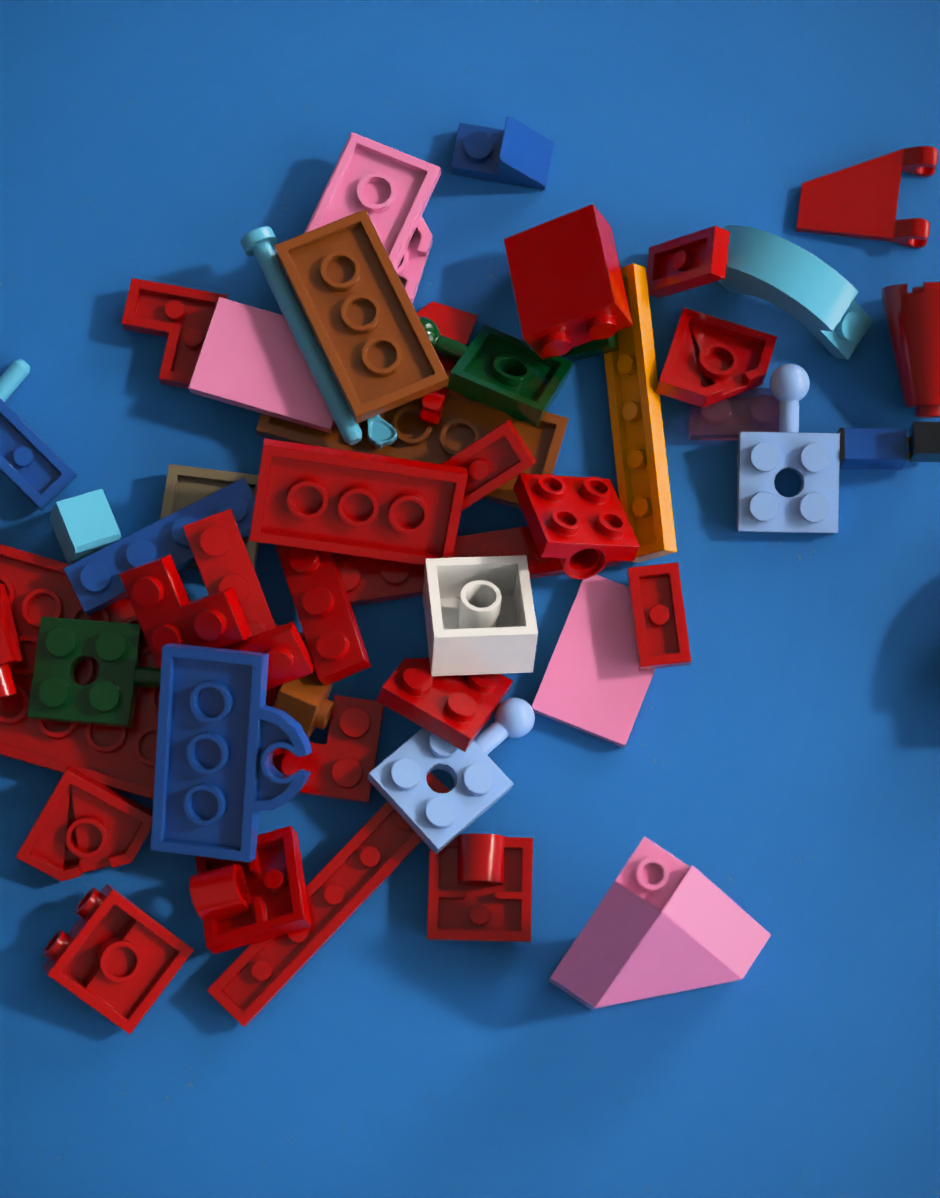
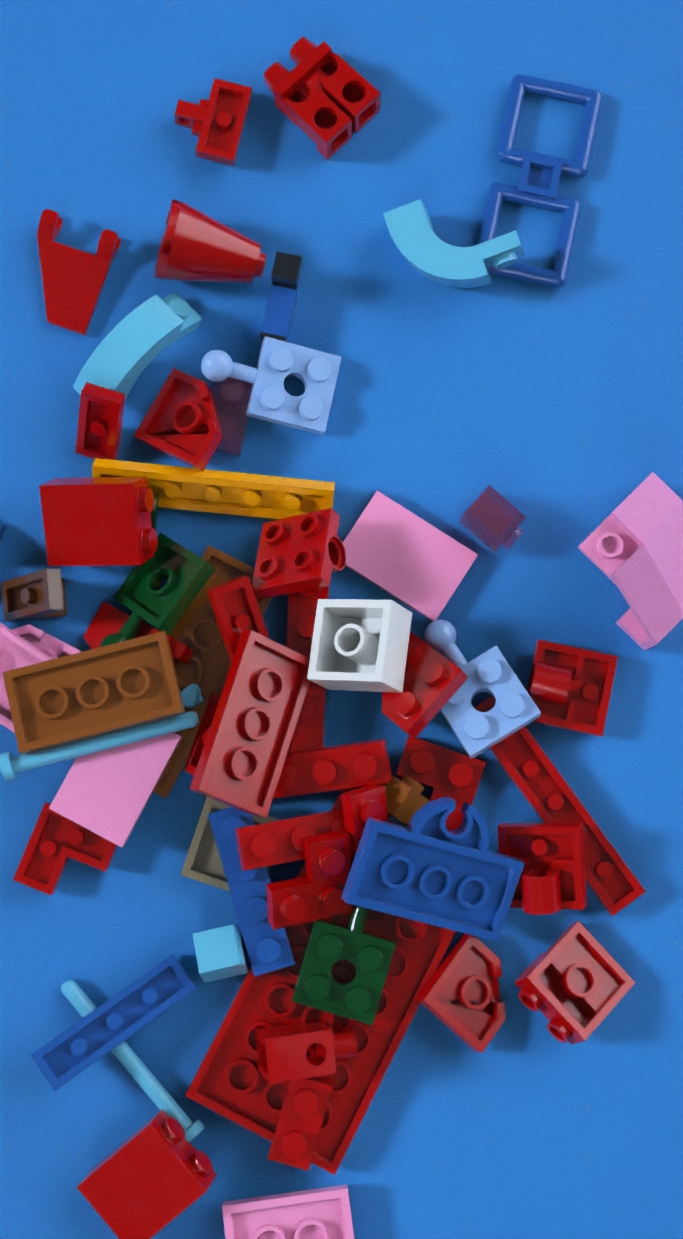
camera: 85 degrees left, 5 degrees up
(466, 237) = (34, 596): none -> reddish brown slope
(658, 616) = (384, 506): red plate -> none
(671, 755) = (493, 520): none -> clear pink brick

